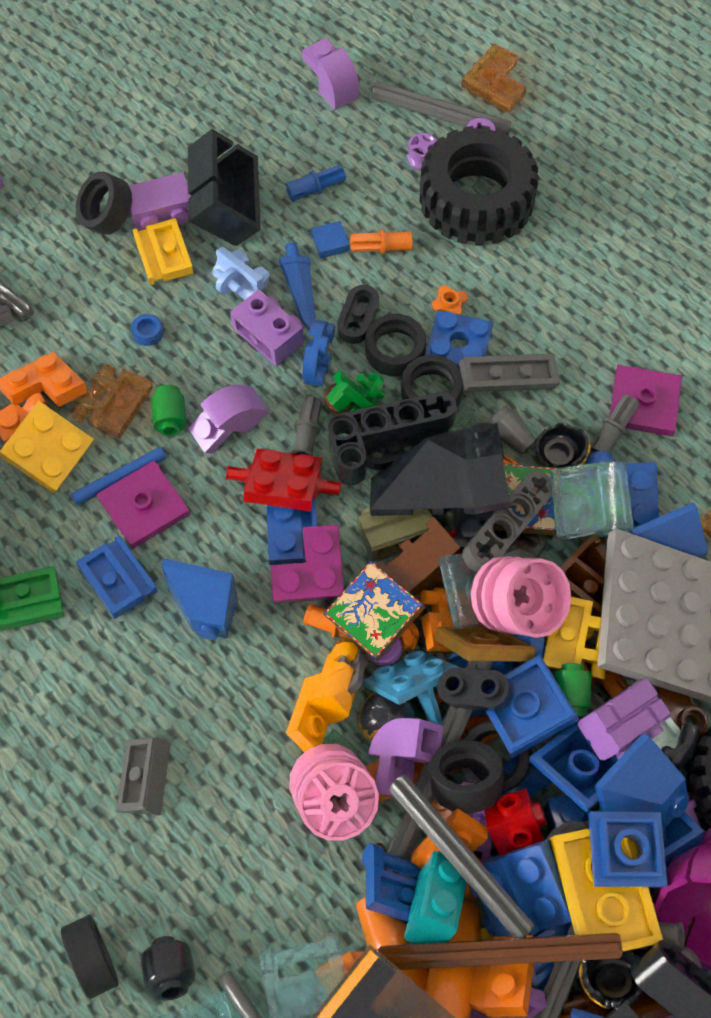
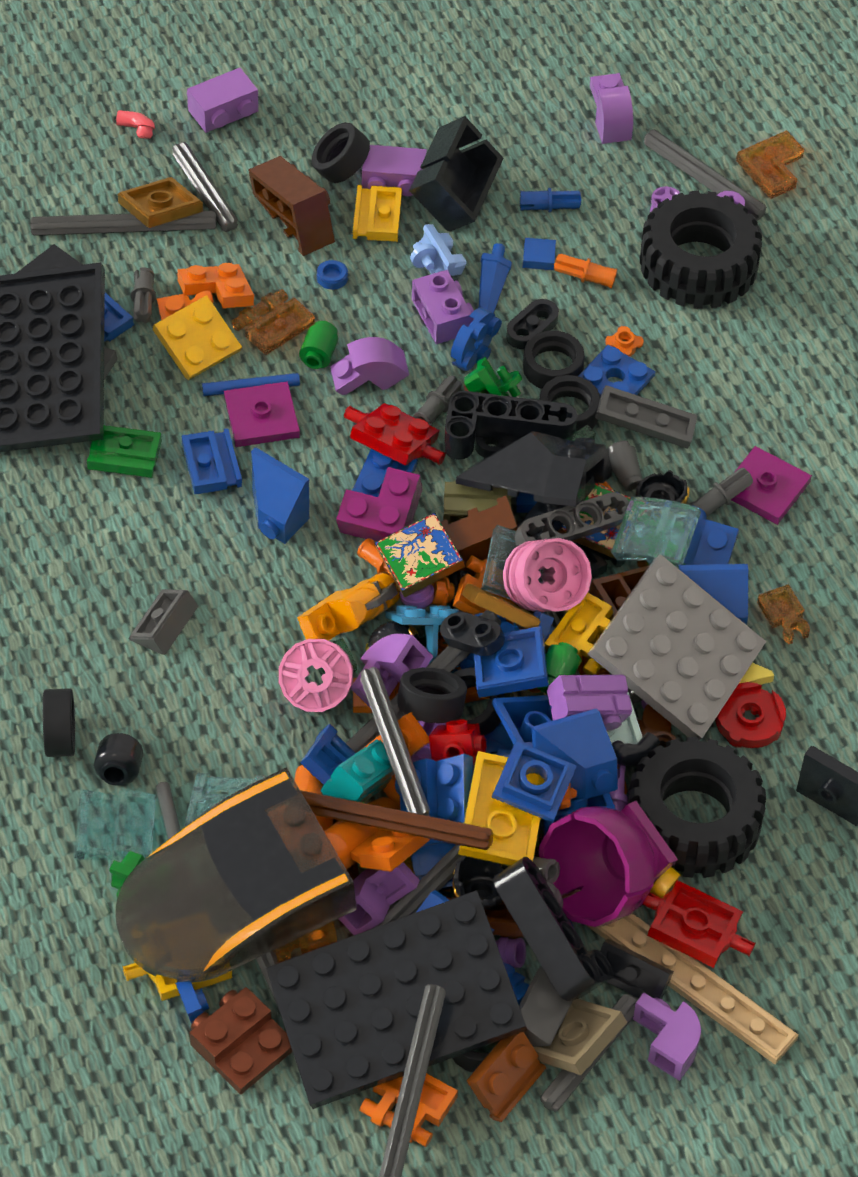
camera: 20 degrees right, 10 degrees down
(82, 267) = (296, 201): none -> reddish brown wedge

